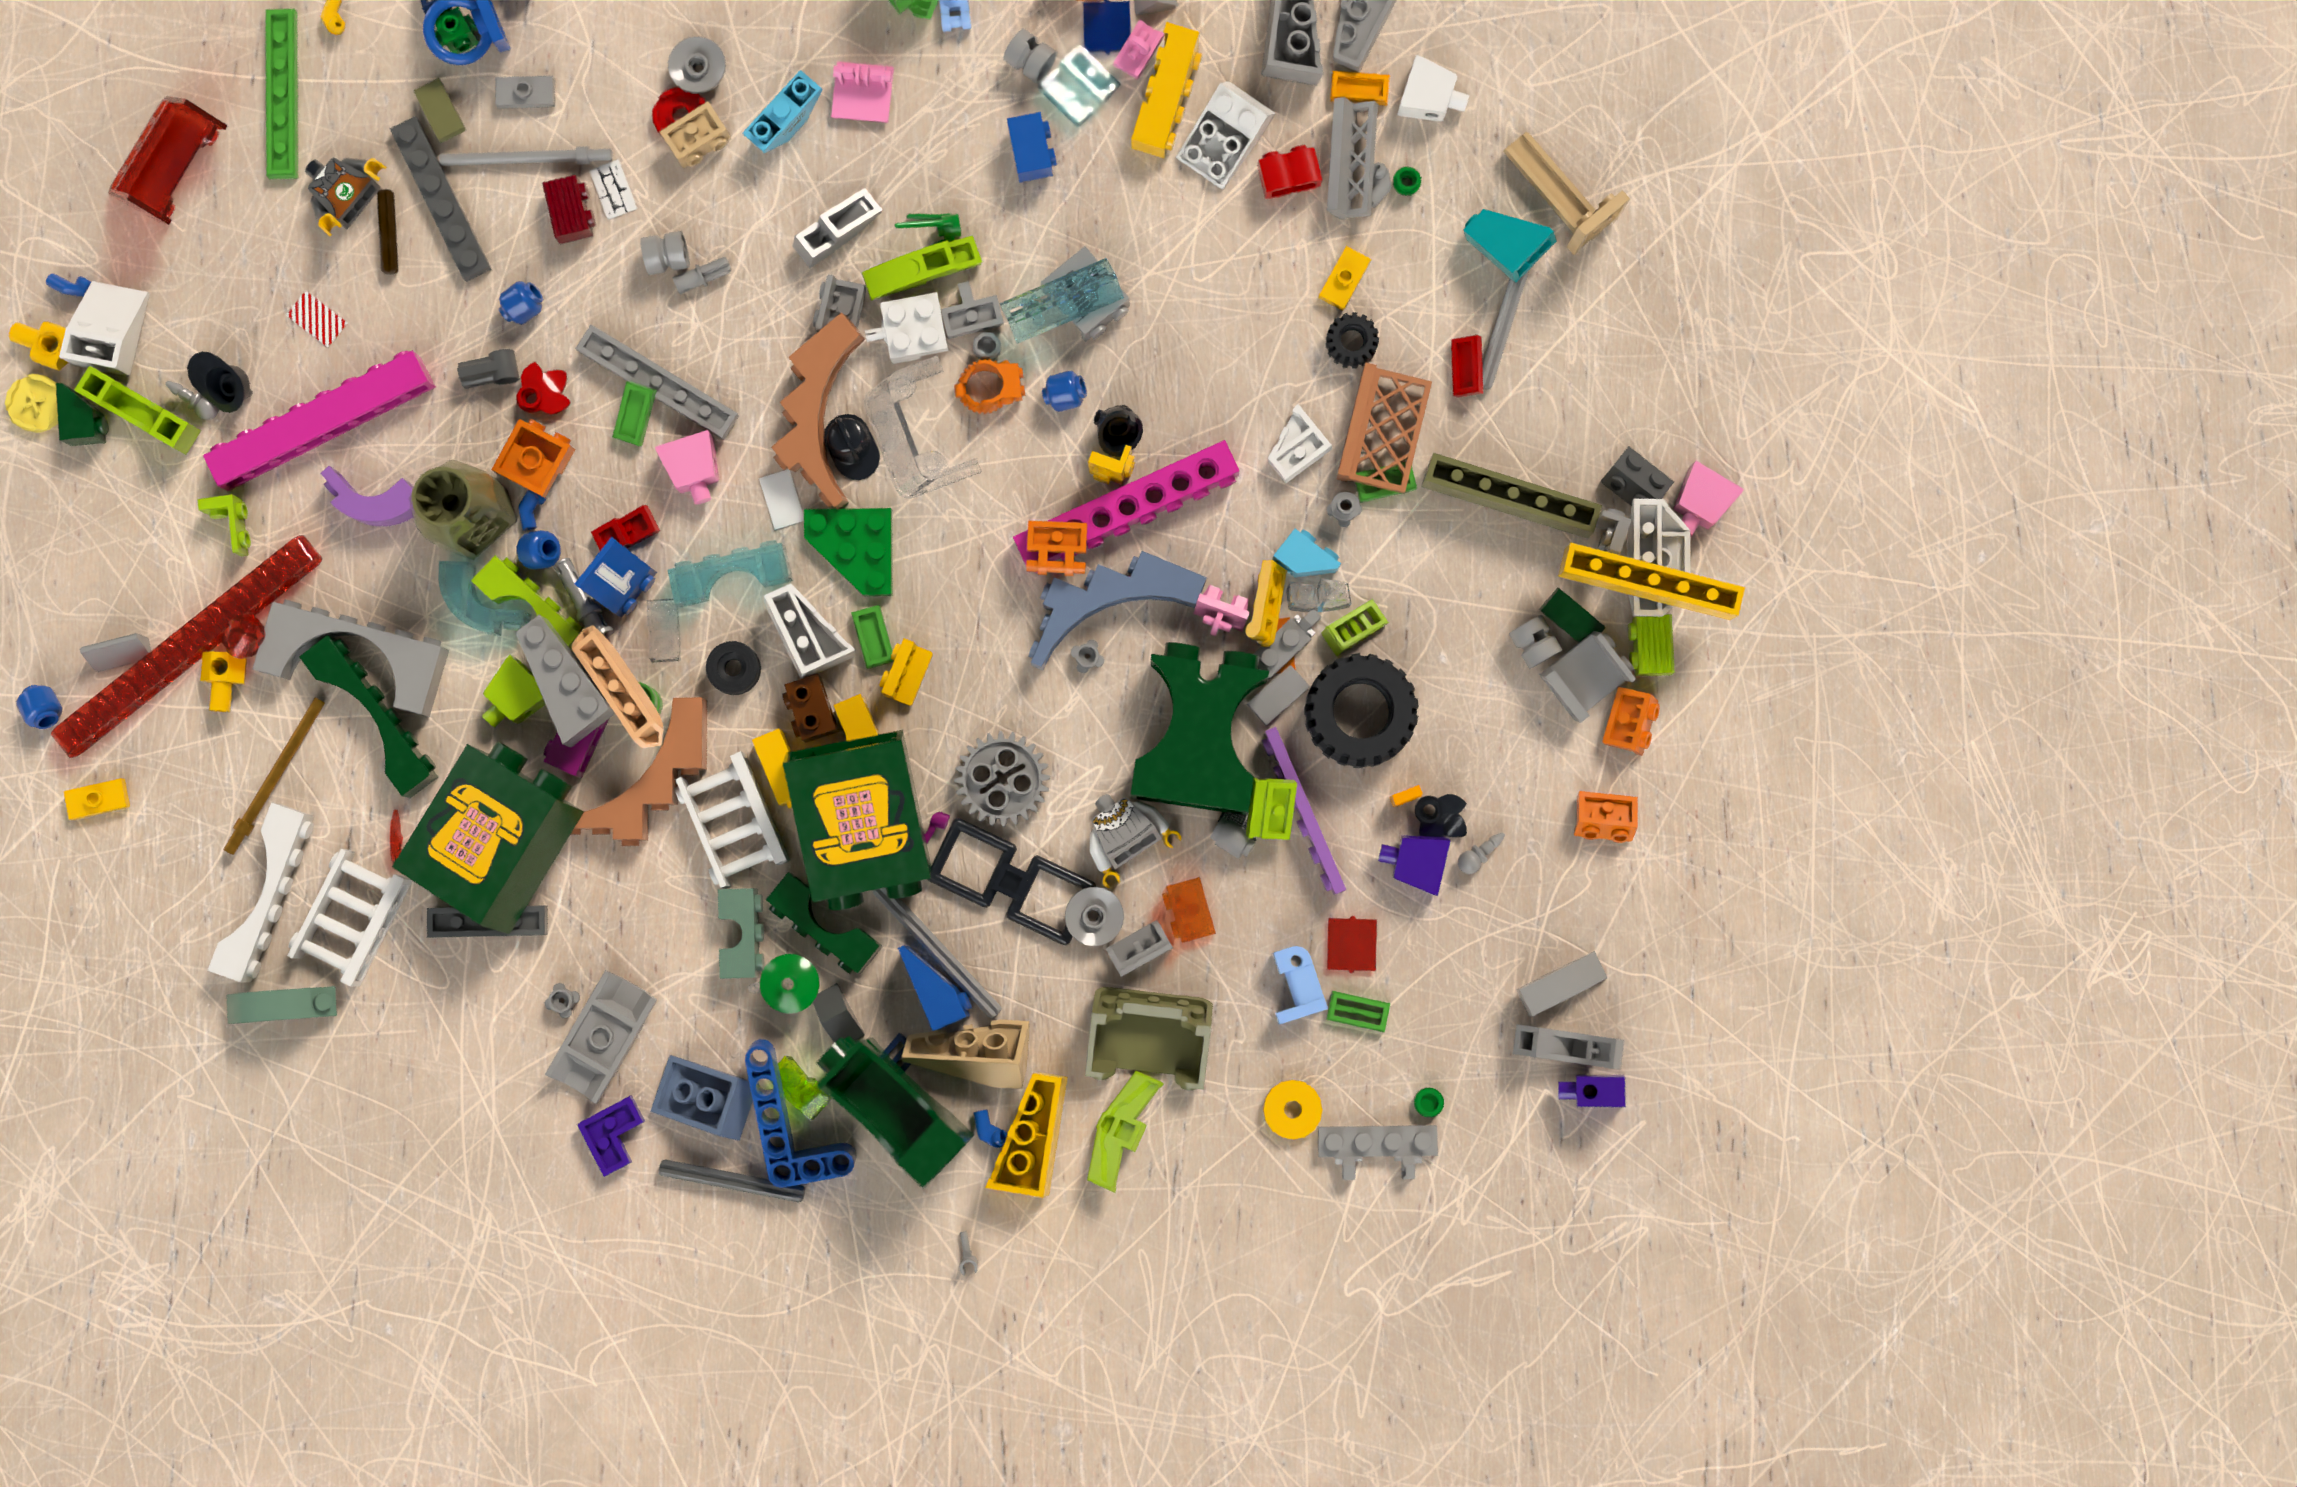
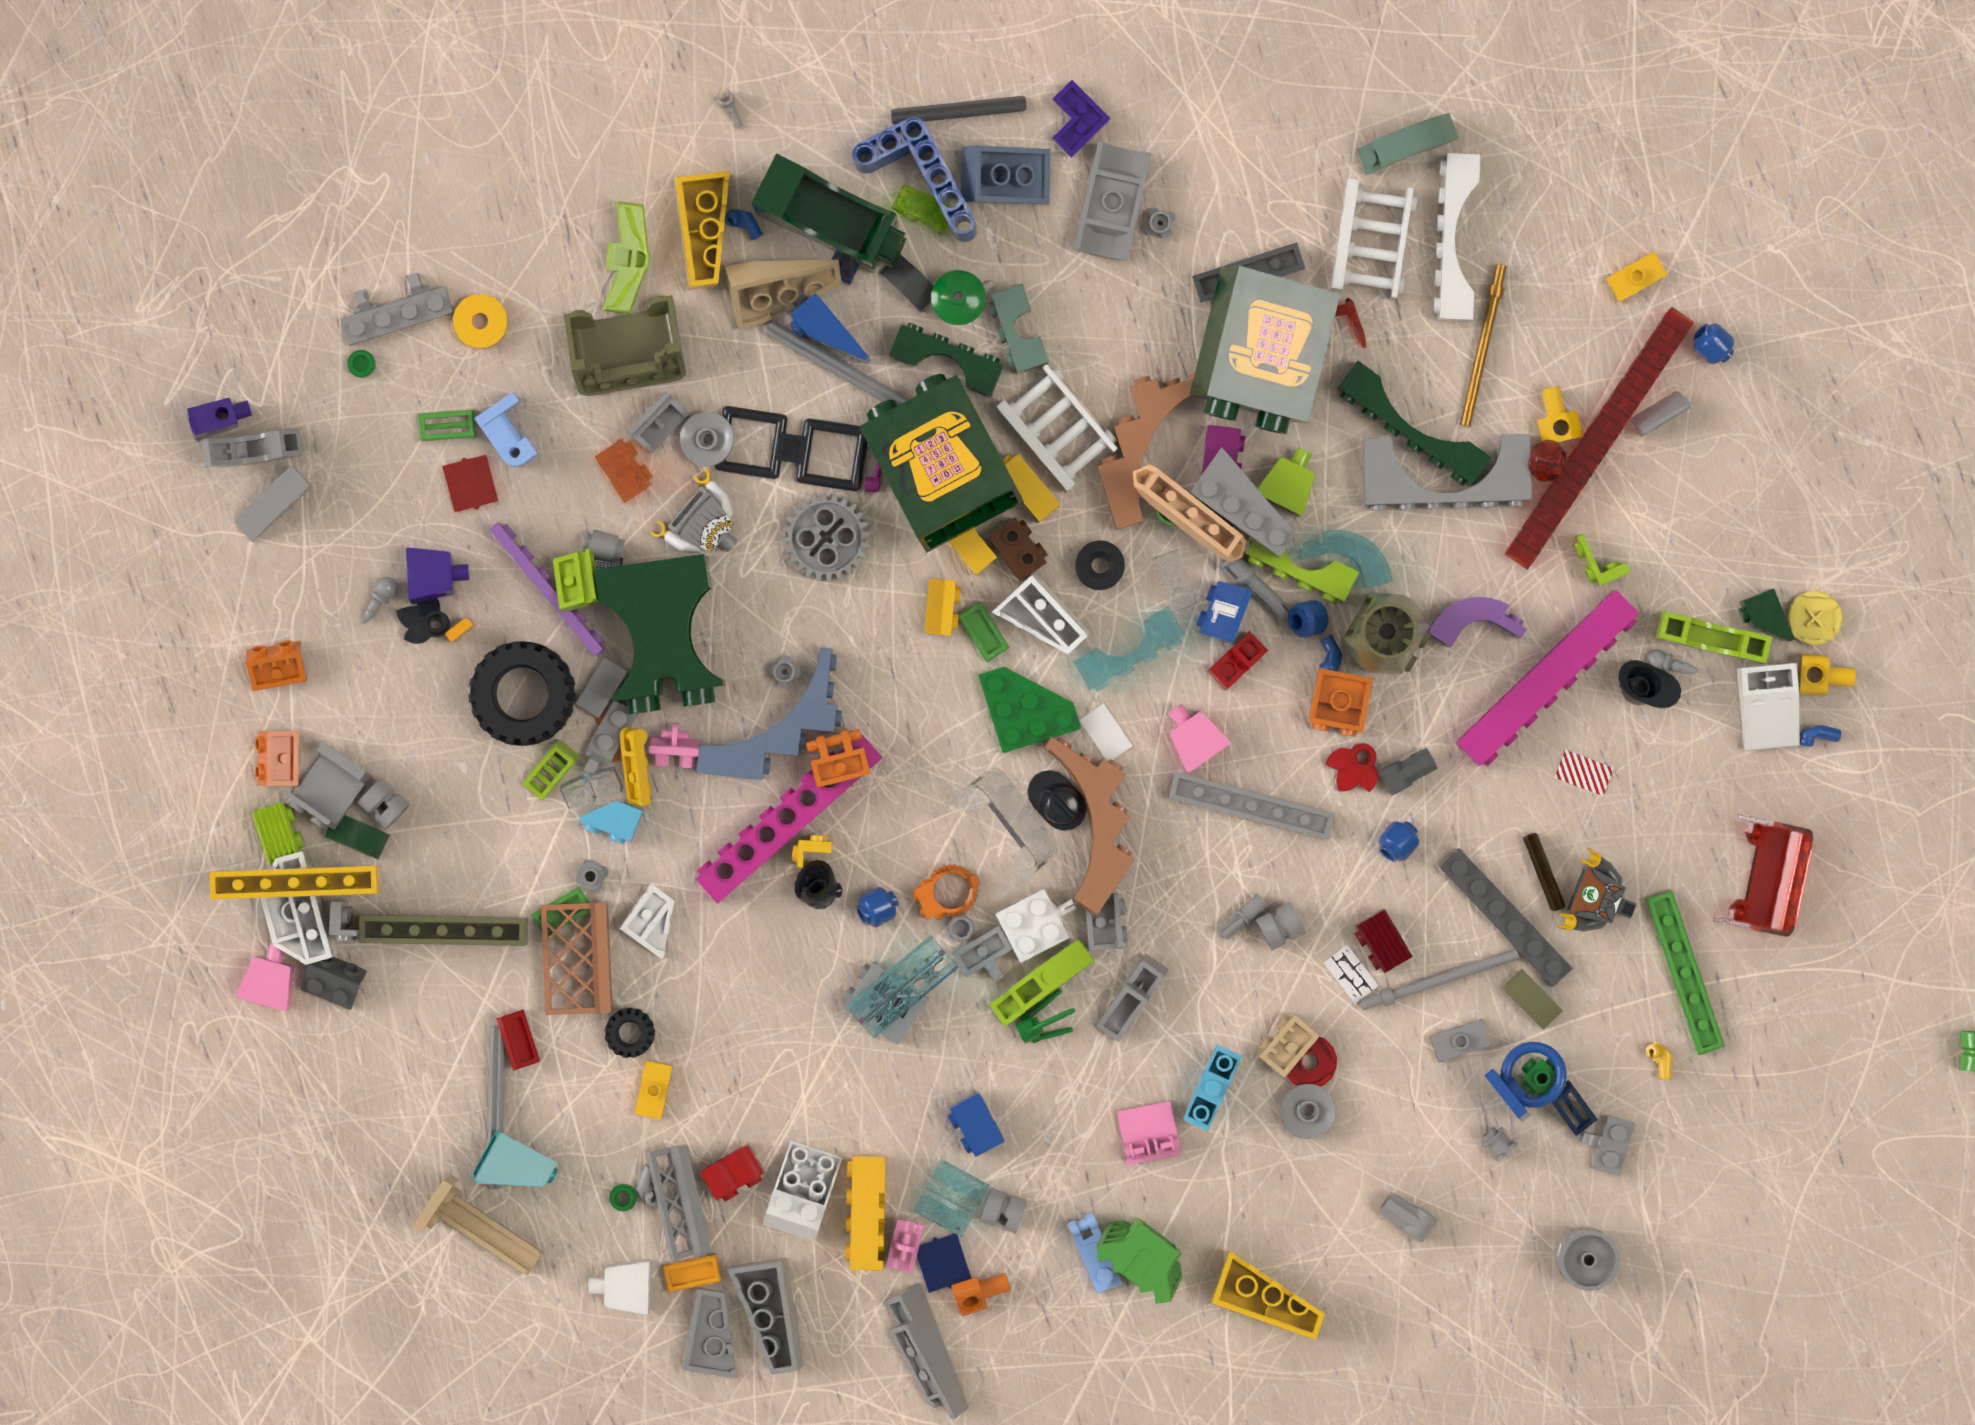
camera: 165 degrees right, 5 degrees up
(634, 413) = (1262, 770): bright green tile -> none

